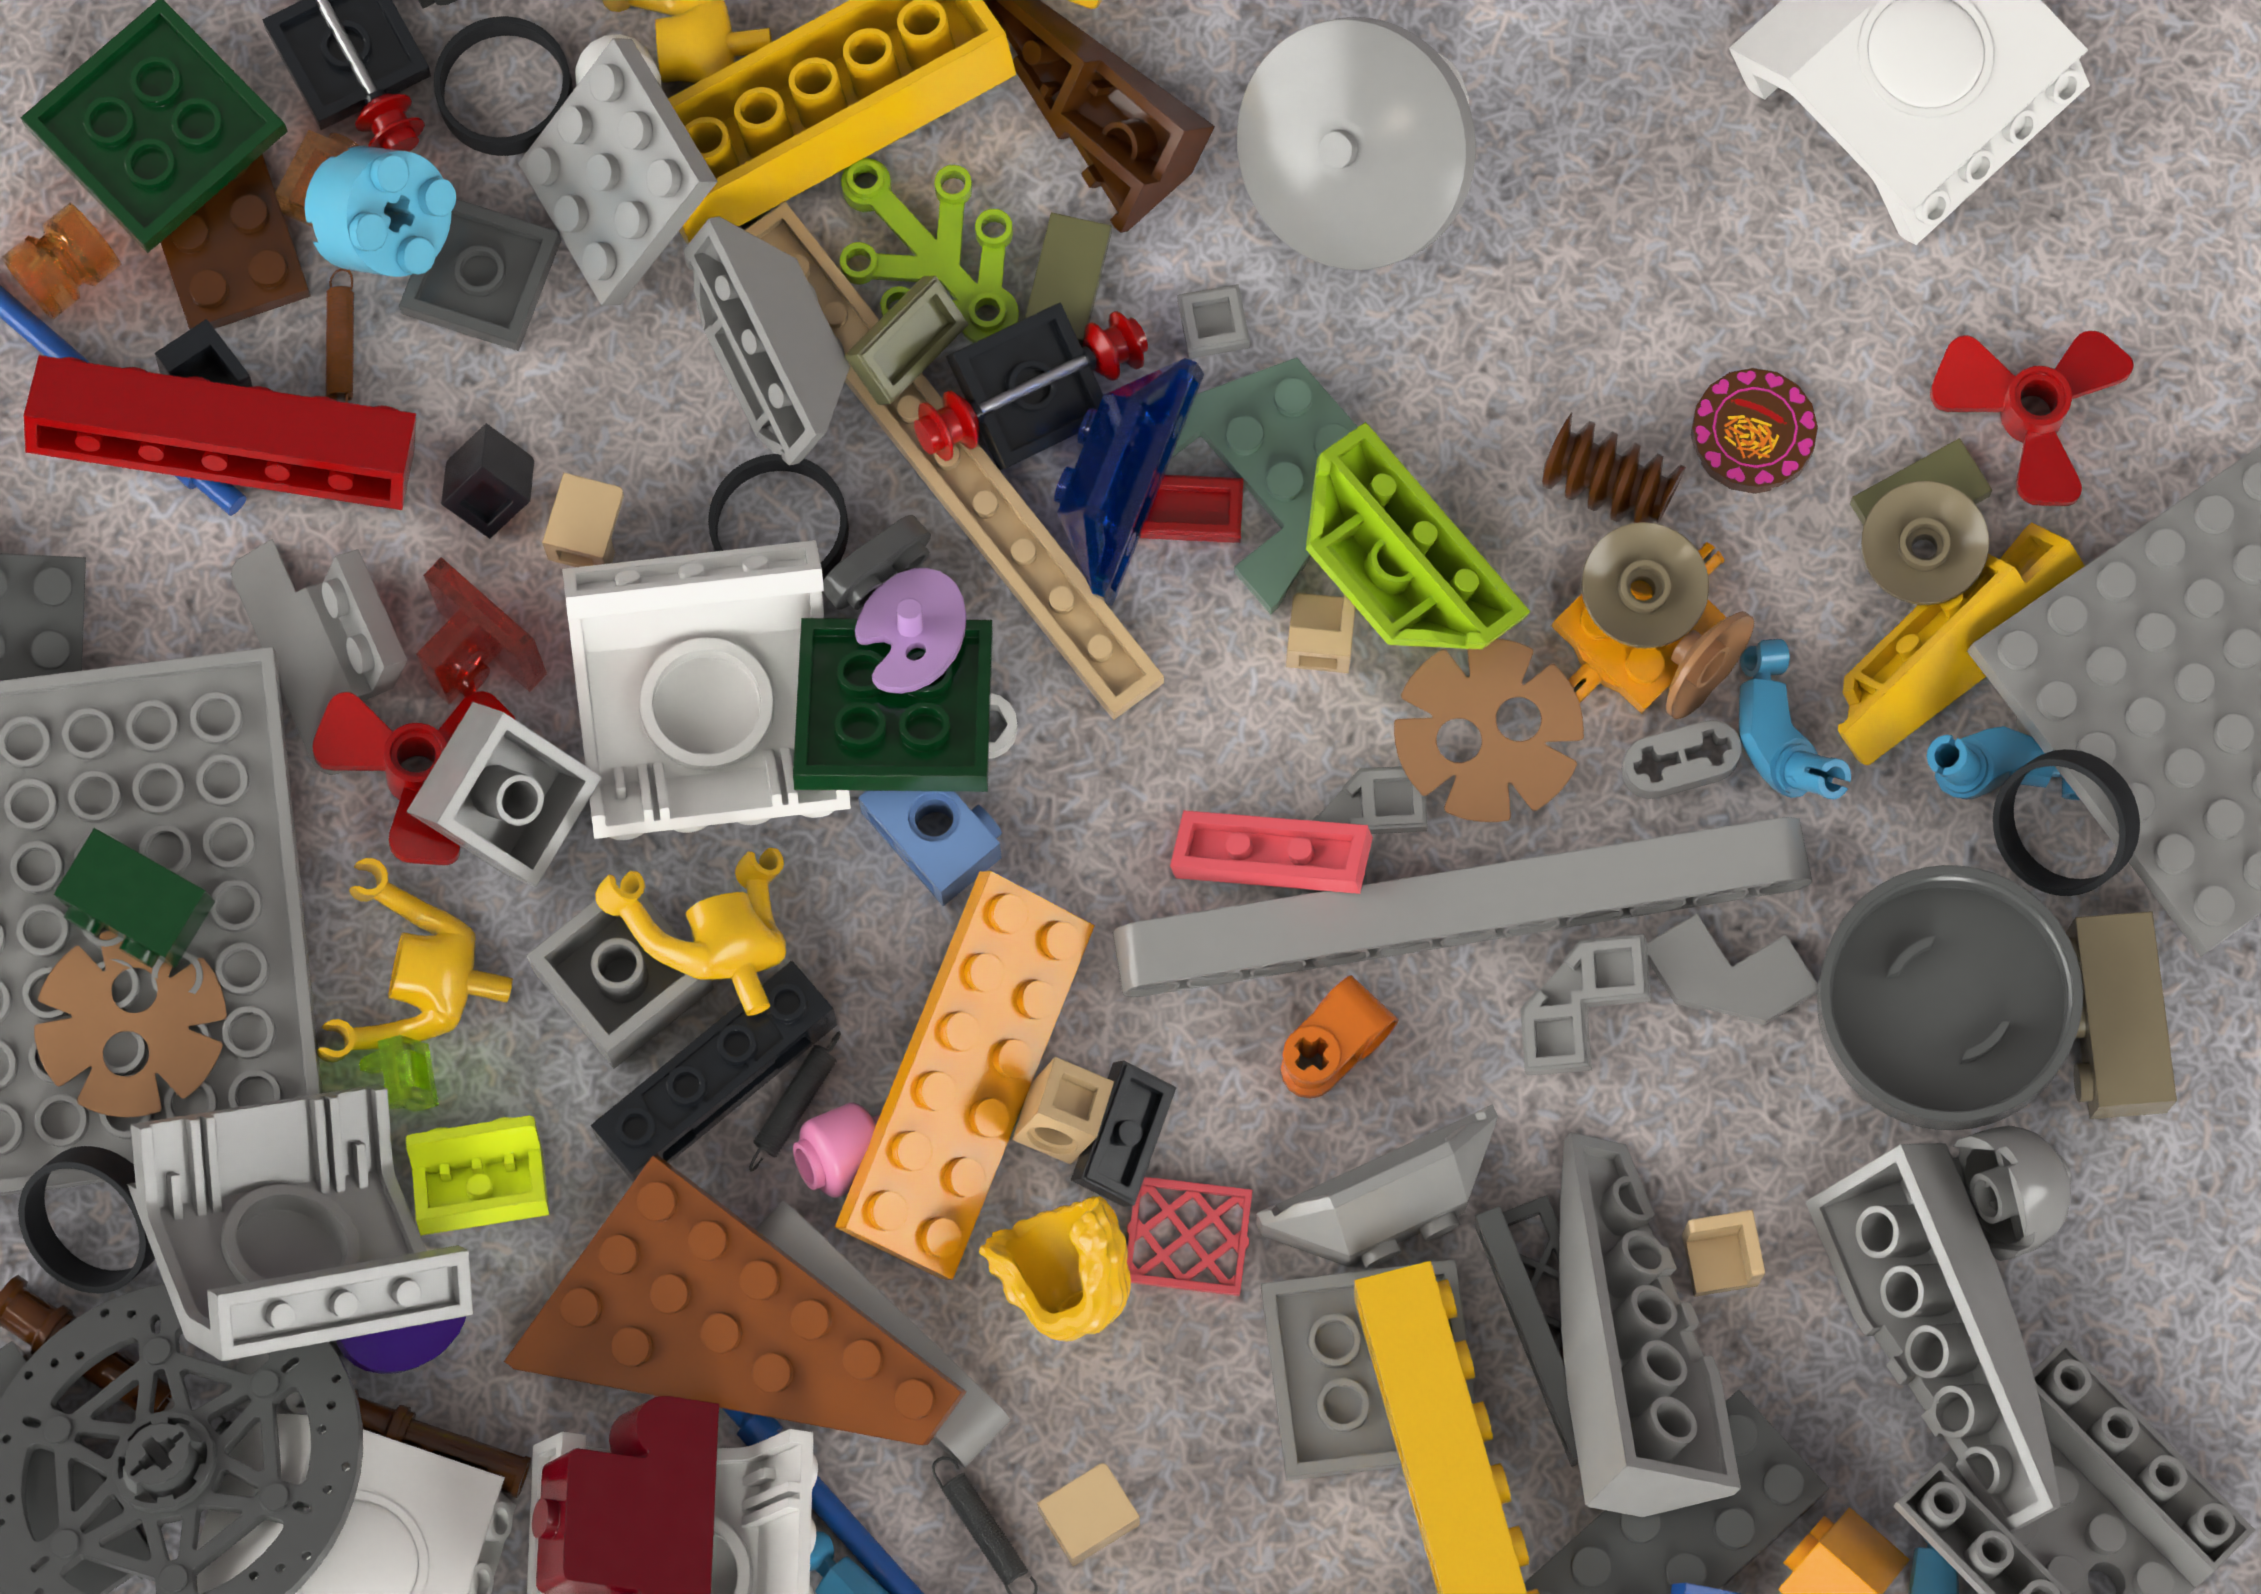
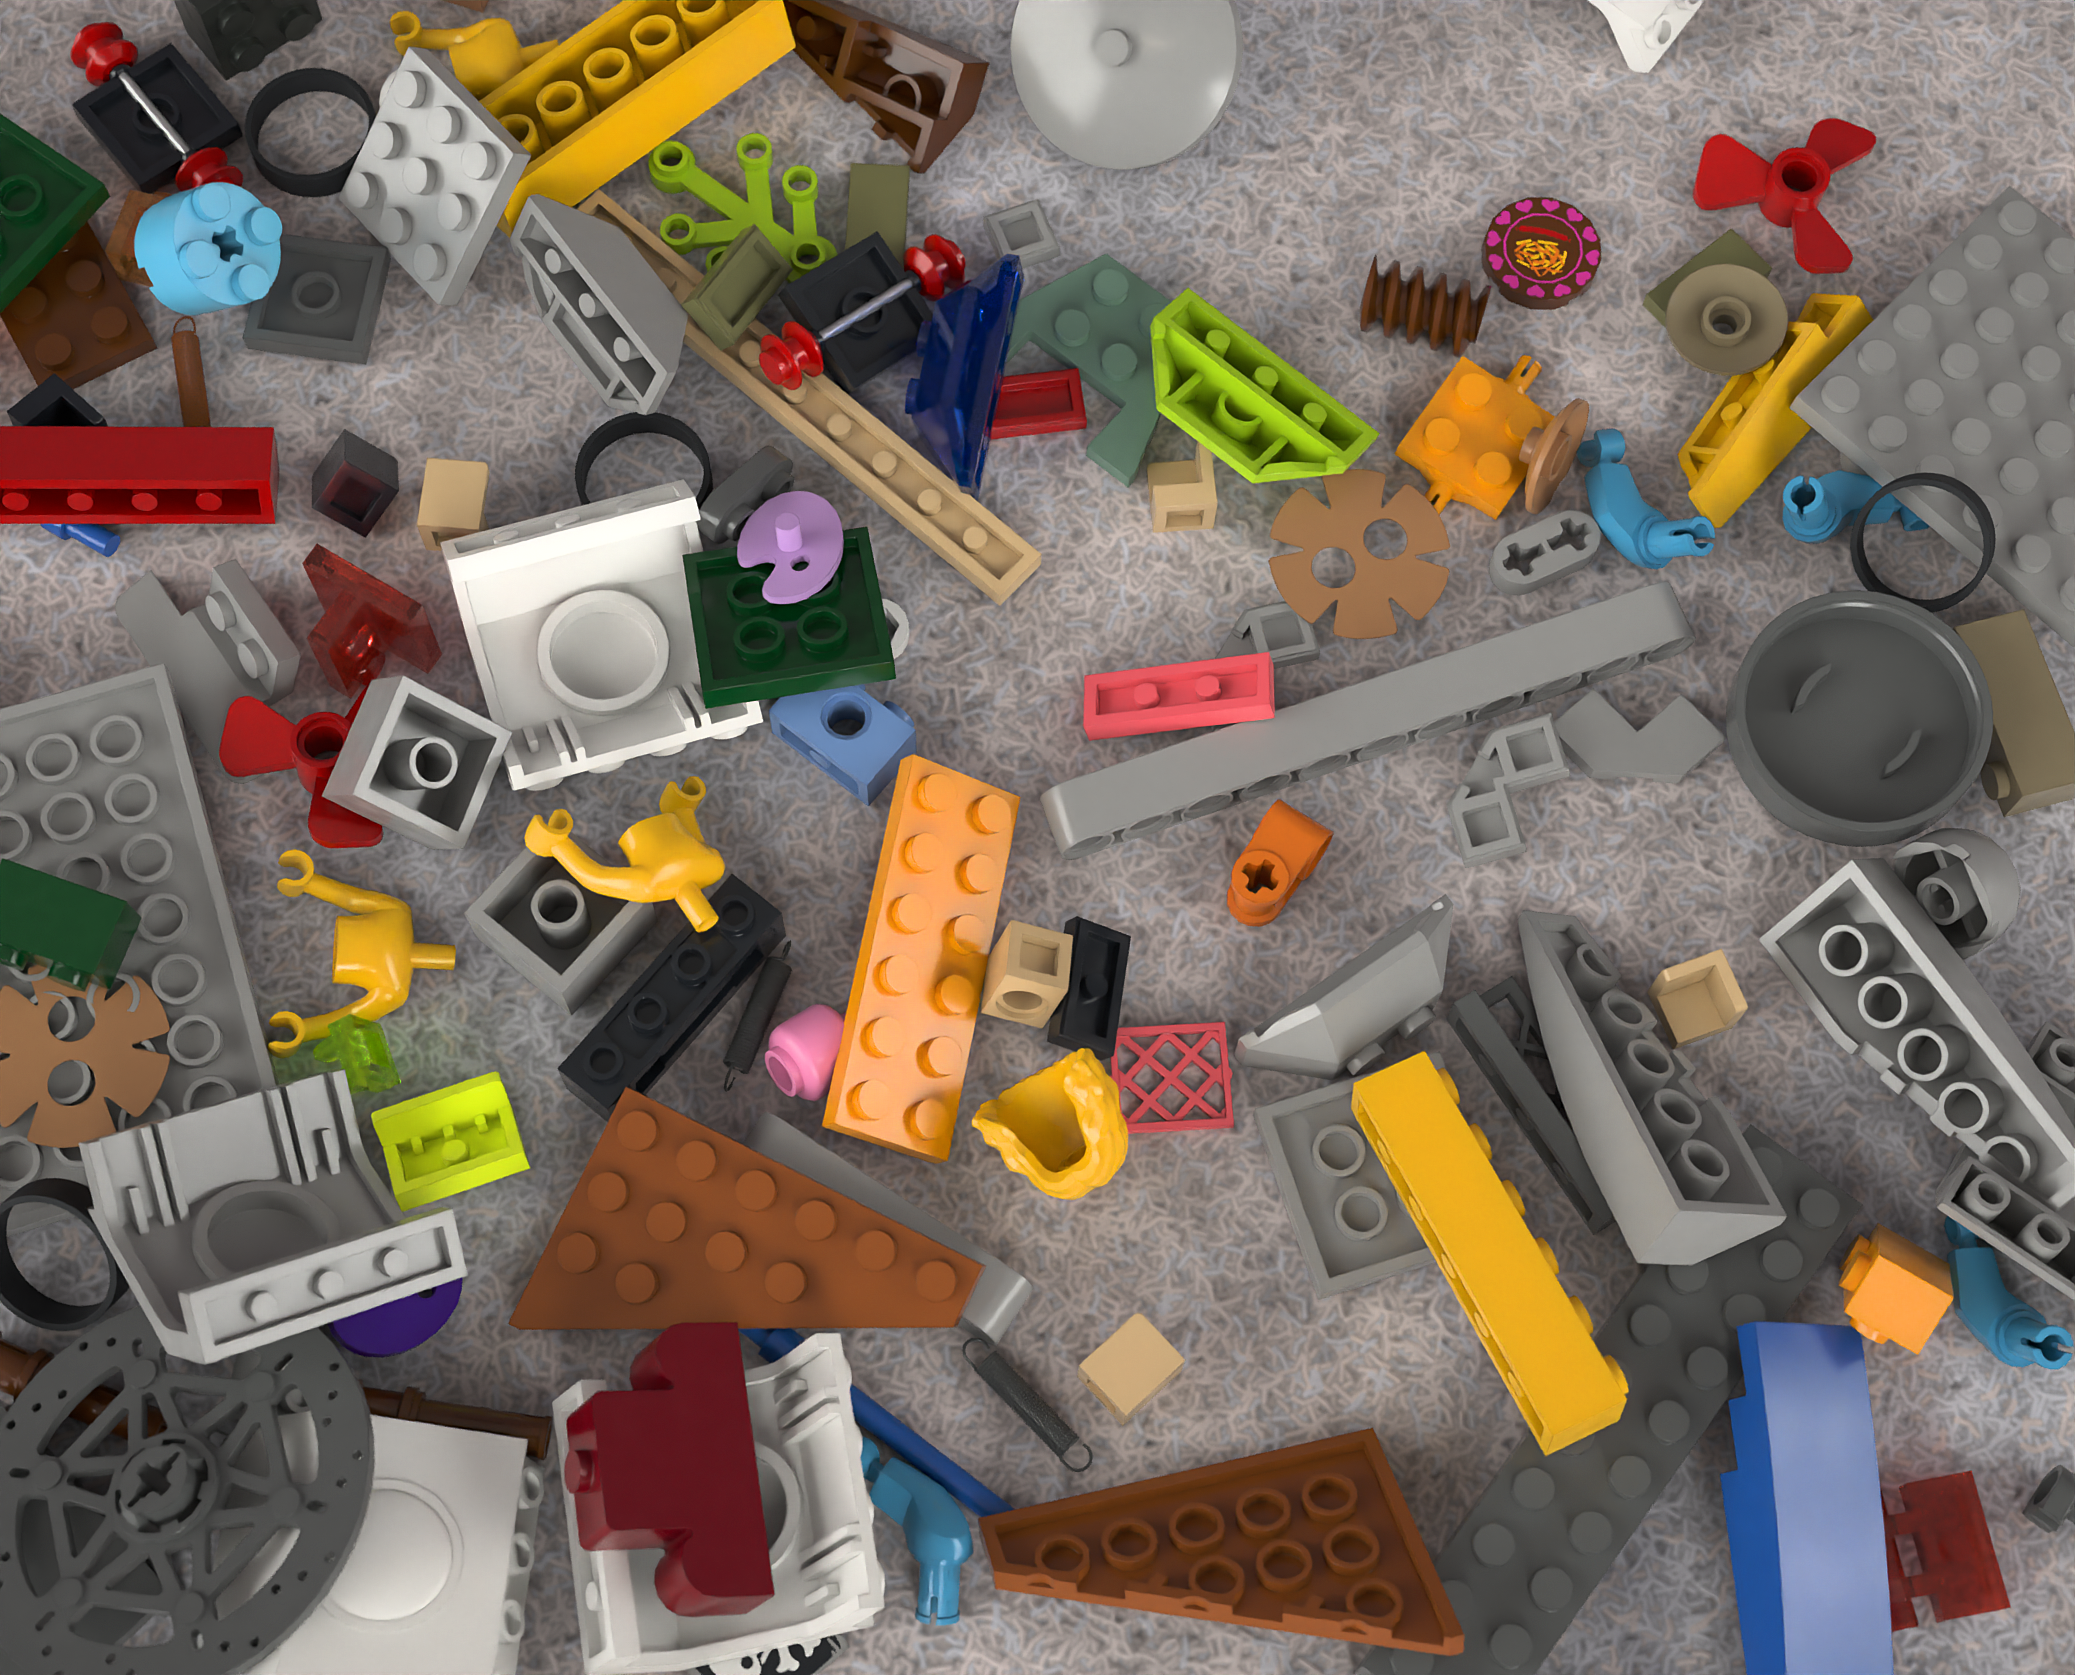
camera: 15 degrees left, 5 degrees down
(1663, 561) = (1488, 369): dark tan dish -> none

